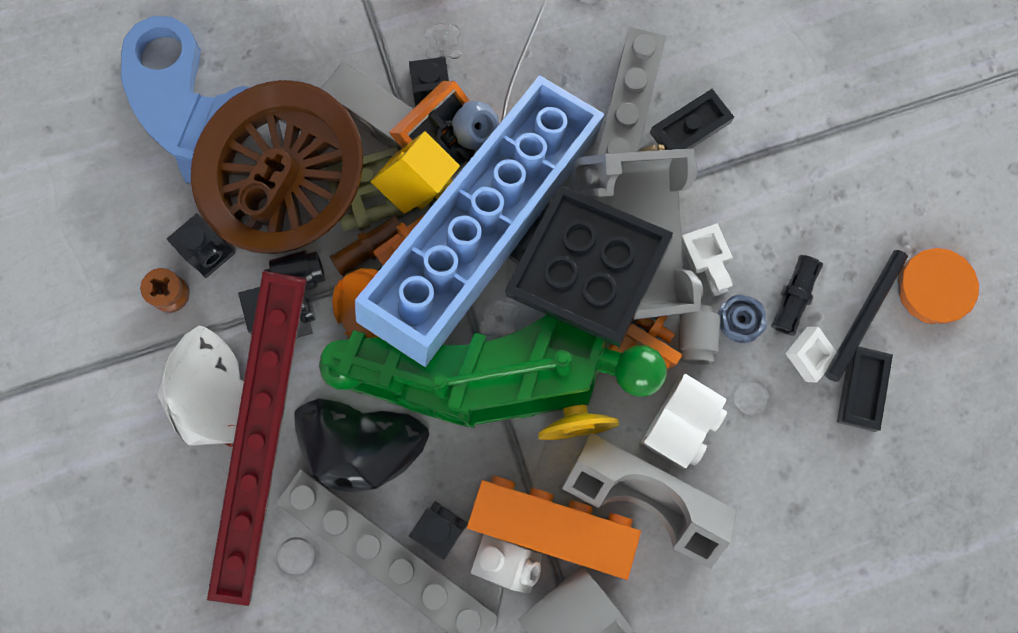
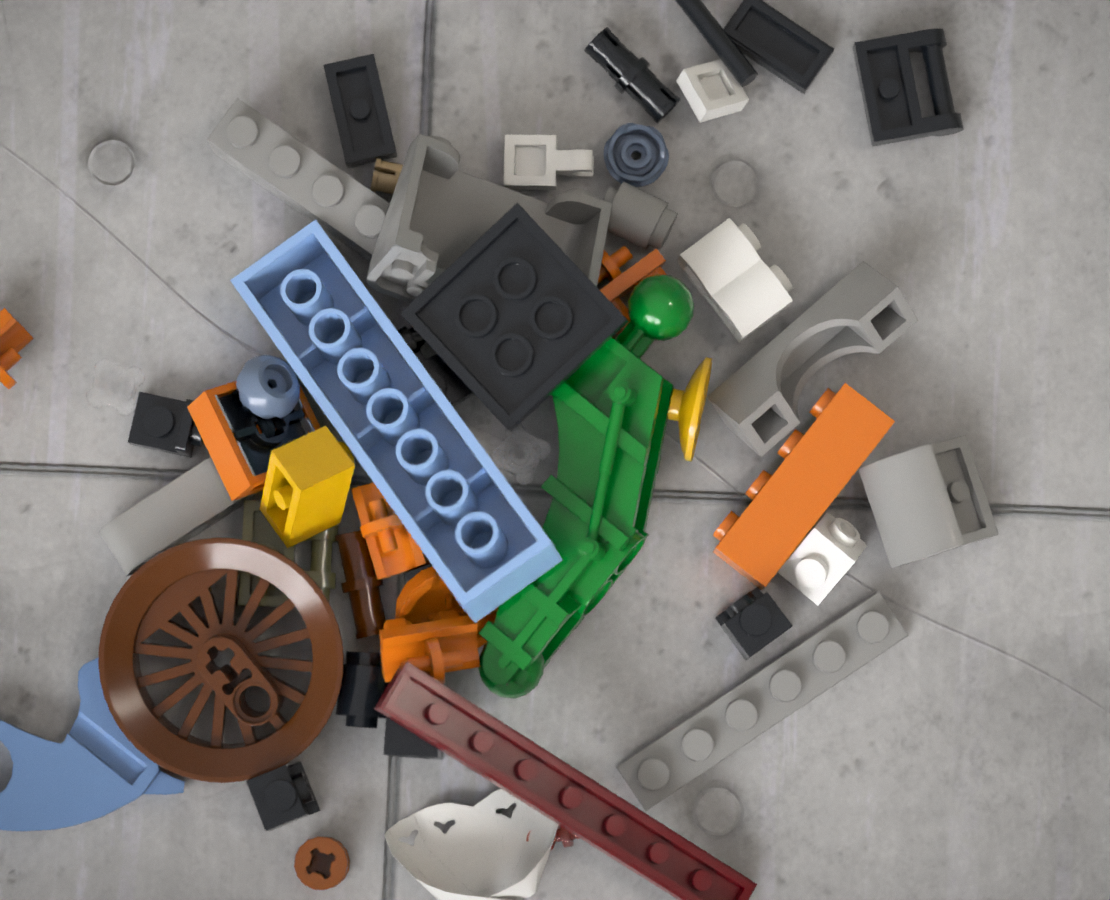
camera: 65 degrees left, 5 degrees up
(330, 298) = (433, 646): none -> orange hips
(356, 444) = (610, 689): black piece -> none
(869, 484) = (891, 91): none -> black plate

